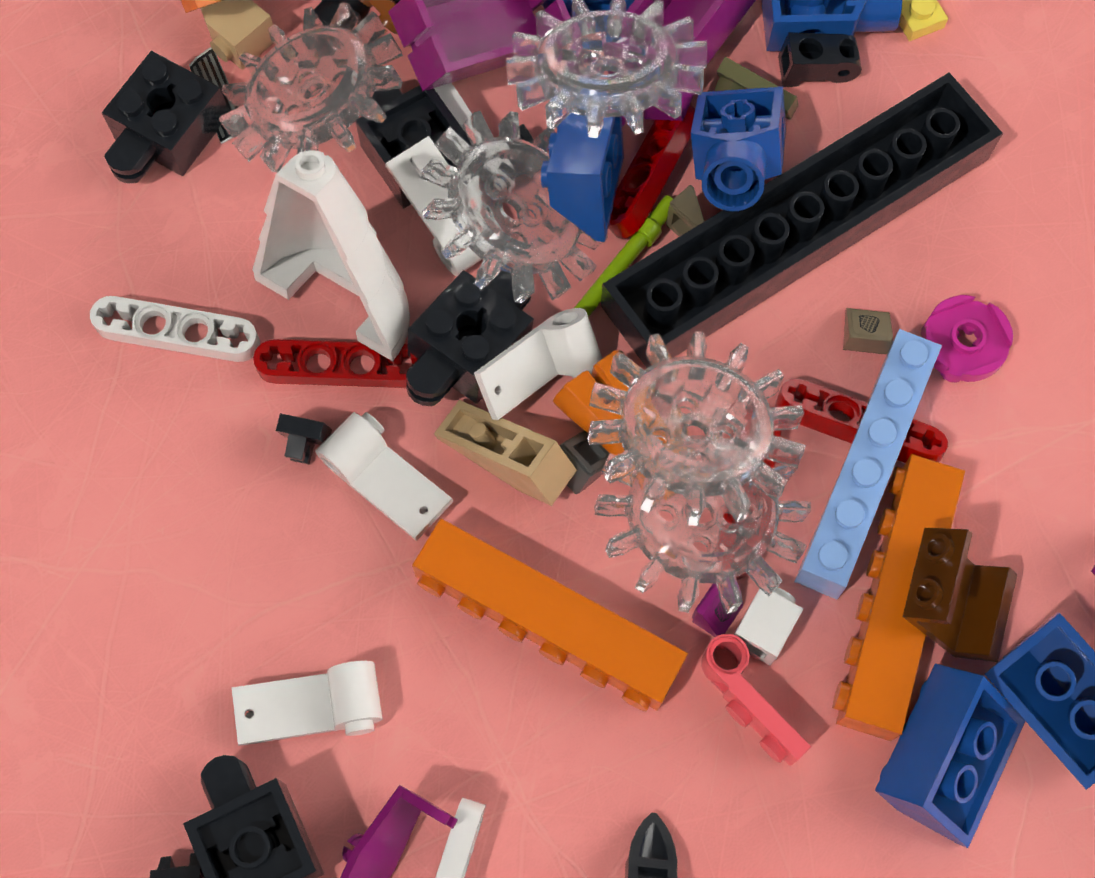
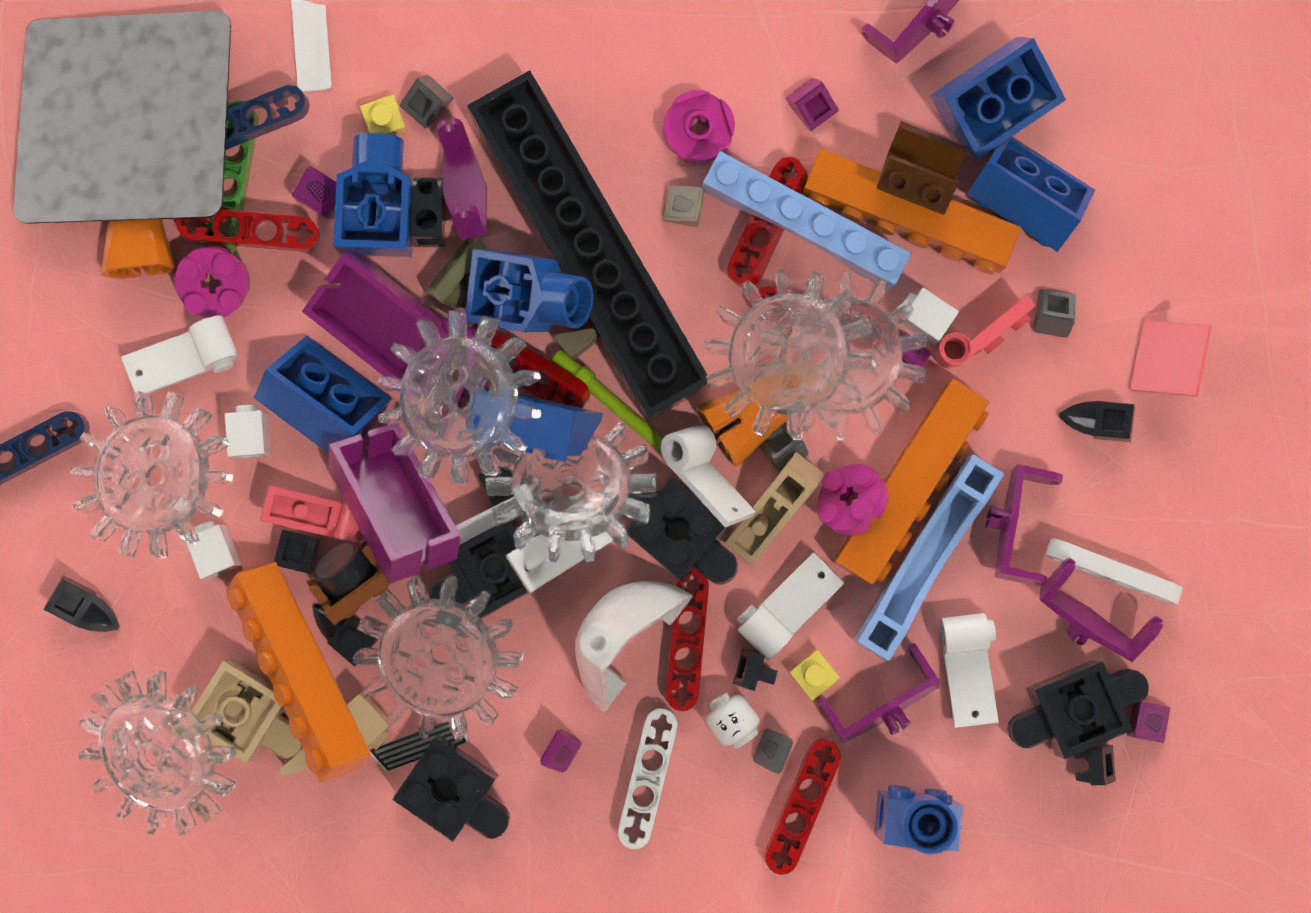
camera: 90 degrees left, 15 degrees up
(112, 649) = (918, 821): none -> blue brick
(135, 511) = (797, 804): none -> red beam
(204, 469) = (773, 750): none -> dark grey slope
(207, 230) = (560, 751): none -> magenta slope
(241, 414) = (732, 720): none -> white head
(253, 604) = (892, 710): none -> magenta piece
(300, 513) = (814, 674): none -> light yellow plate
(490, 660) = (927, 555): none -> light blue arch
(509, 742) = (1007, 520): none -> magenta piece
(521, 535) = (836, 490): none -> dark pink plate
(791, 799) = (1055, 313): none -> dark grey slope
(858, 89) = (462, 181): none -> magenta piece
(947, 53) = (426, 100): none -> dark grey slope
(1018, 473) = (812, 103): none -> magenta slope

